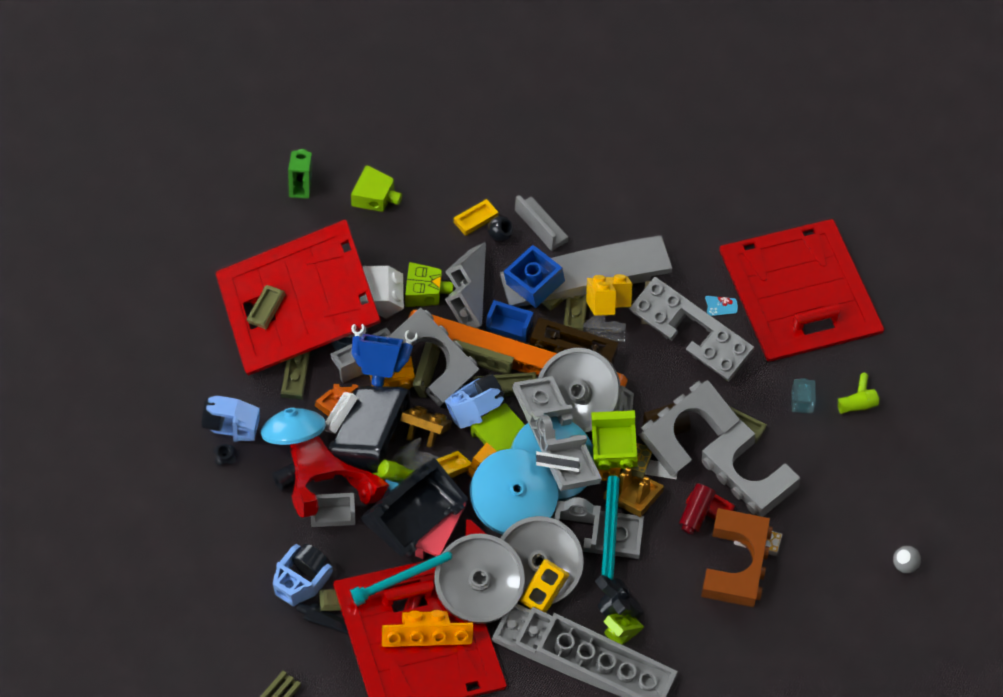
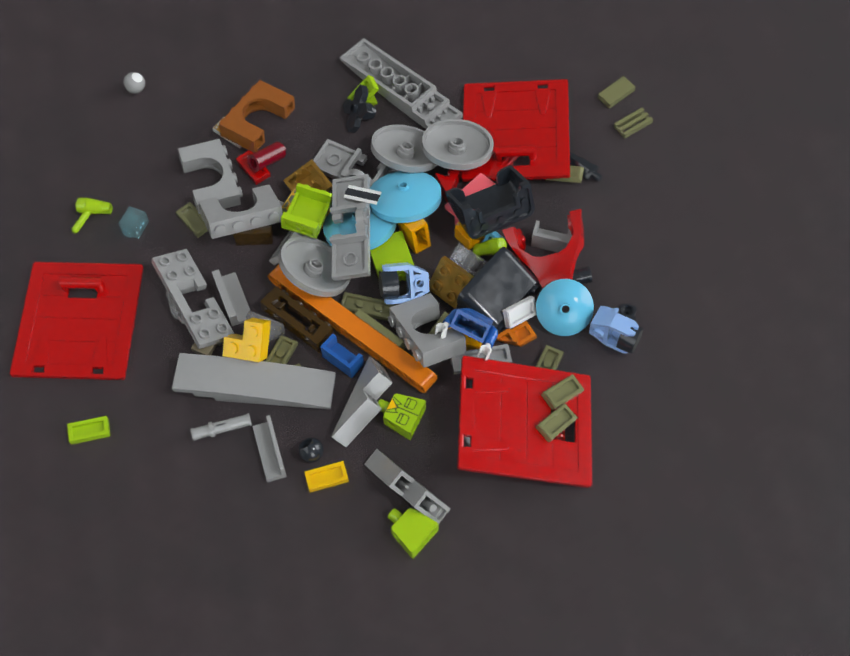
camera: 155 degrees left, 5 degrees up
(268, 337) = (562, 392): none -> olive tile
(293, 587) = (583, 191): light blue piece -> none
(300, 164) = (480, 561): bright green torso -> none
(361, 594) = (553, 152): teal piece -> none
(386, 289) = (442, 413): white slope -> none
(399, 221) = (407, 486): none -> light grey slope
(426, 630) = (508, 125): light orange bracket -> none
(454, 463) = (444, 243): yellow tile -> none
(534, 276) = (305, 373): blue brick -> none
(550, 590) = (414, 133): yellow piece -> none
(605, 224) = (212, 429): none -> light grey pin
(610, 526) = (340, 156): teal axle -> none
(655, 351) = (232, 297): none -> light grey panel
(721, 305) = (153, 326): medium azure sticker -> none
(724, 194) = (88, 430): none -> lime tile

